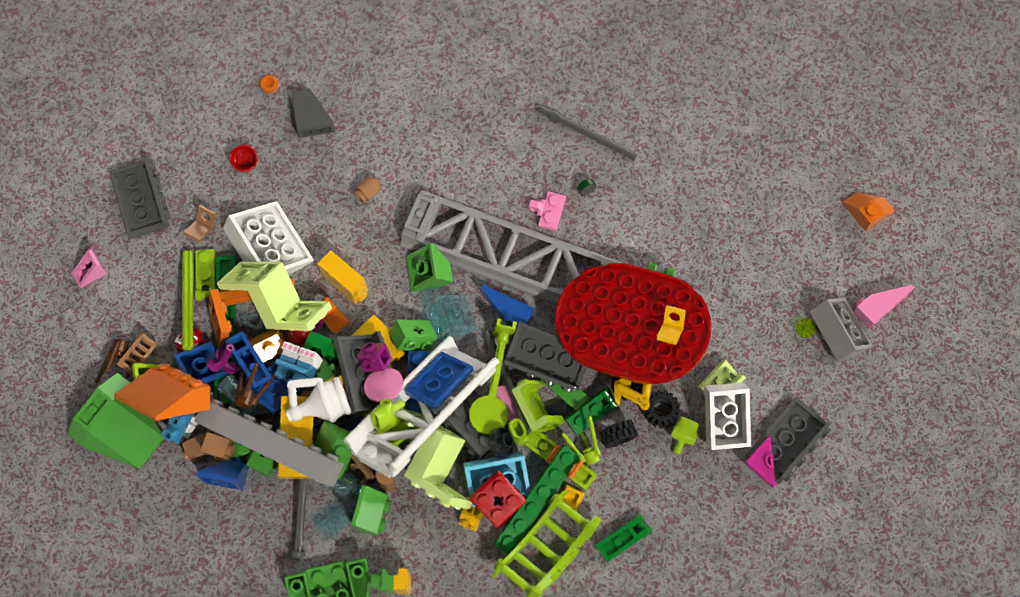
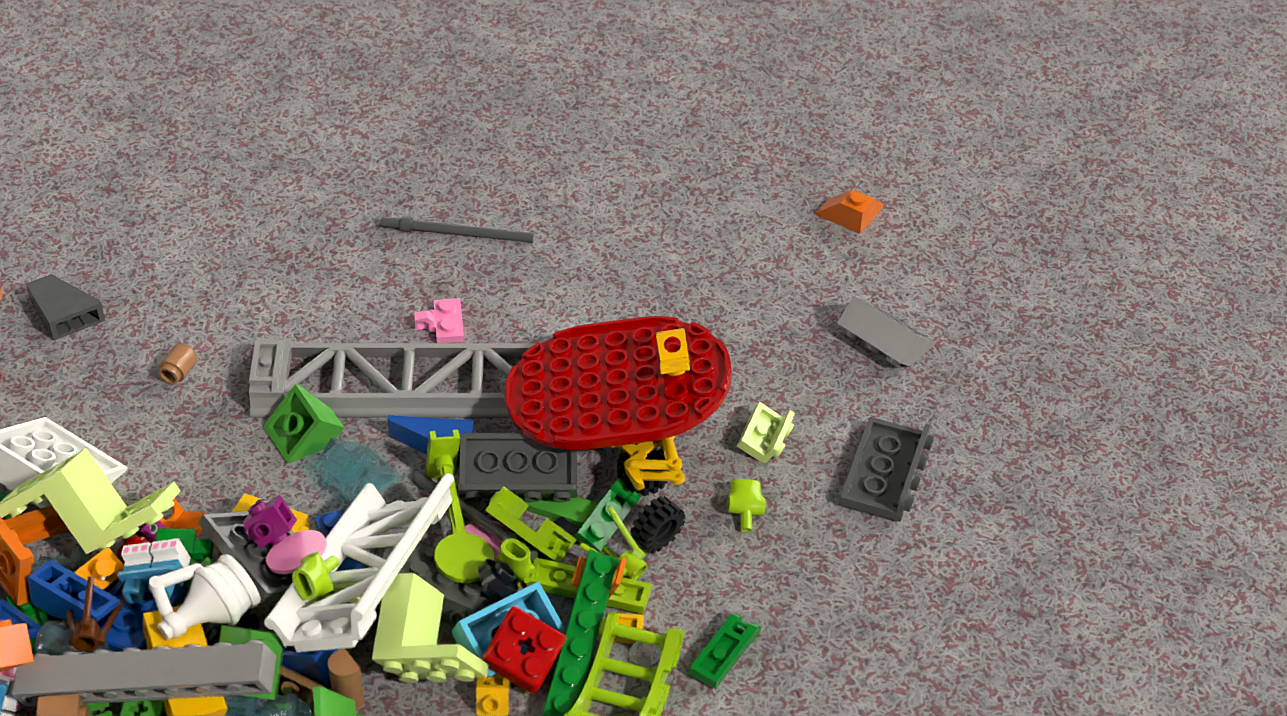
camera: 25 degrees left, 25 degrees down
(222, 355) = (29, 603): magenta plant -> none
(343, 277) = (182, 460): yellow brick -> none
(413, 335) = (313, 496): bright green brick -> none
(439, 380) = (376, 524): blue tile -> none
(586, 187) = (484, 281): tile -> none
(670, 401) = (702, 497): black tyre -> none
(727, 416) = (794, 454): white brick -> none
(762, 462) = (867, 498): dark pink tile -> none
(805, 328) = (841, 347): clear neon green tile -> none
(879, 304) = (919, 294): bright pink slope -> none

